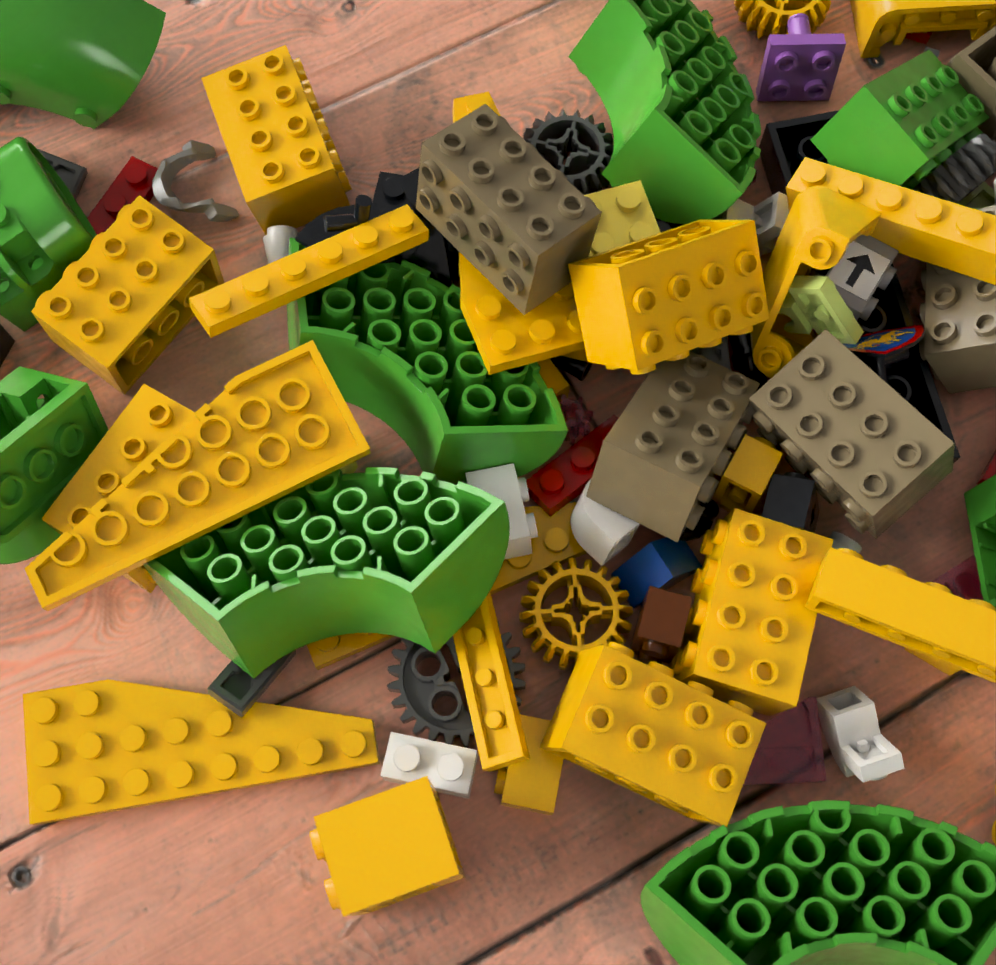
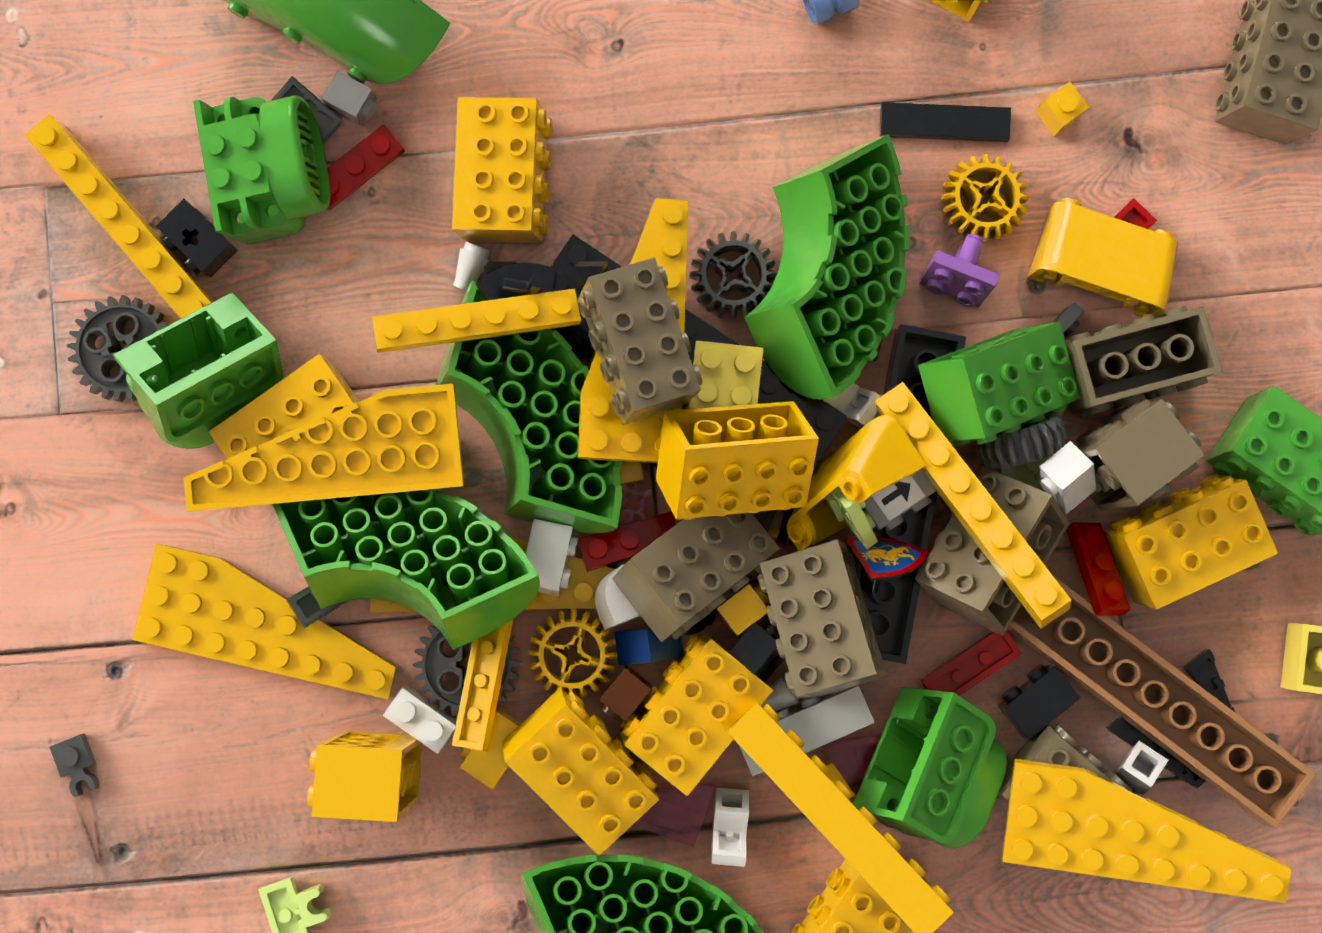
camera: 20 degrees right, 15 degrees up
(86, 142) = (350, 98): none -> light grey brick
(128, 294) = (335, 261): yellow brick -> none
(171, 166) = (398, 173): light grey helmet -> none
(915, 547) = (822, 720): none -> white brick

